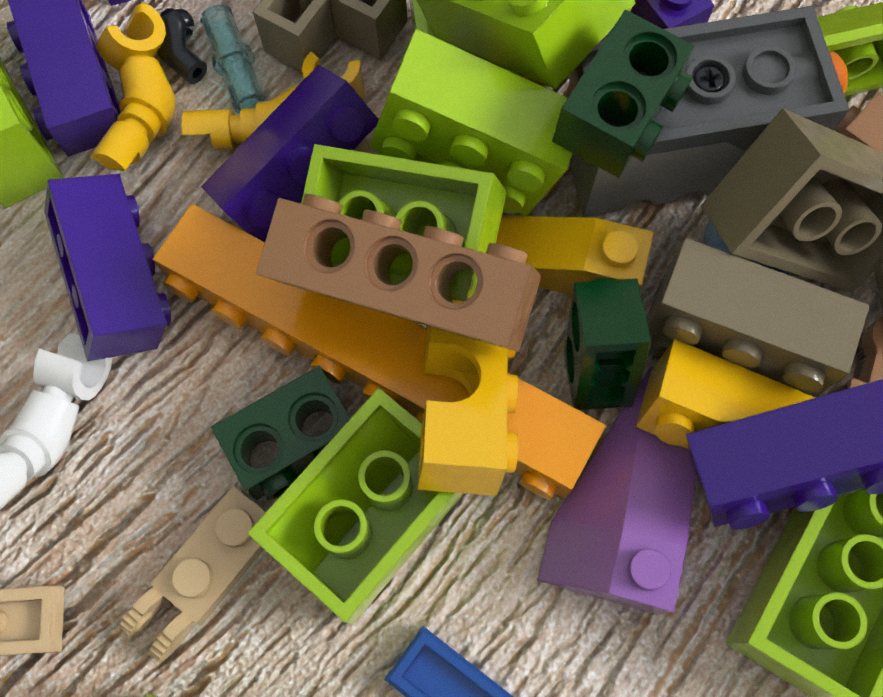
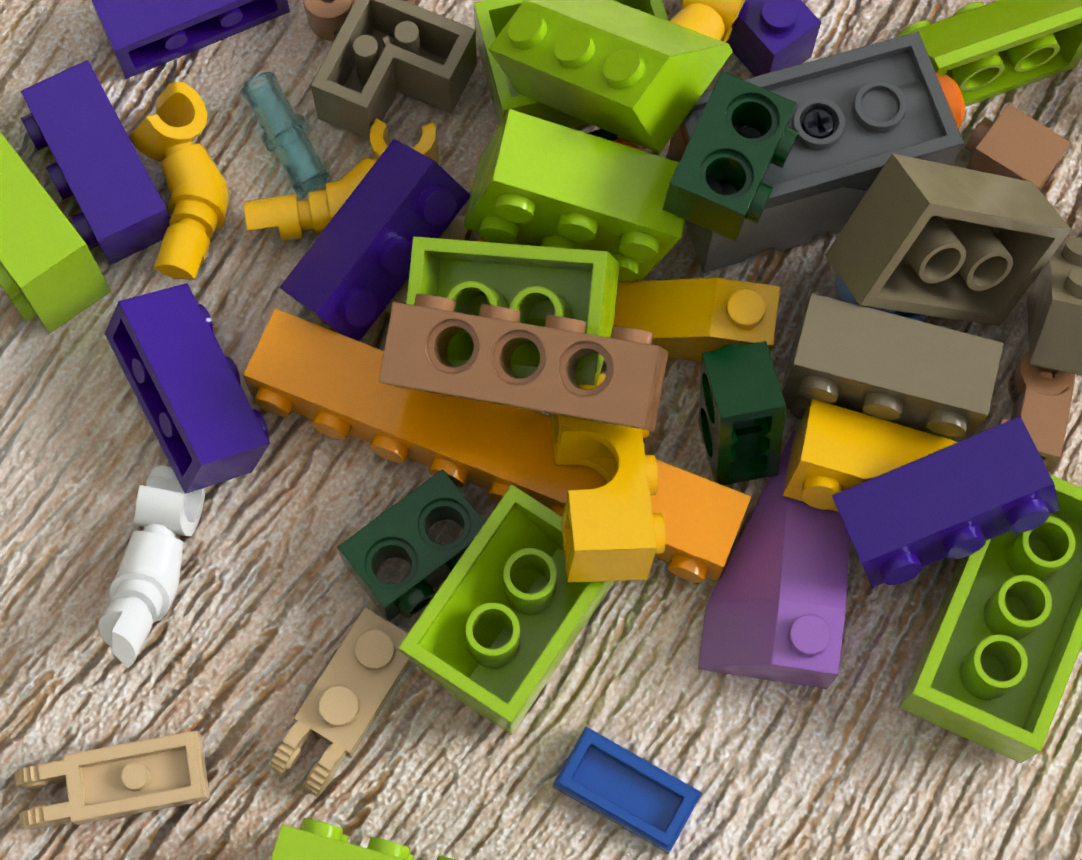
camera: 10 degrees left, 0 degrees up
(174, 49) = (217, 132): black arm -> none

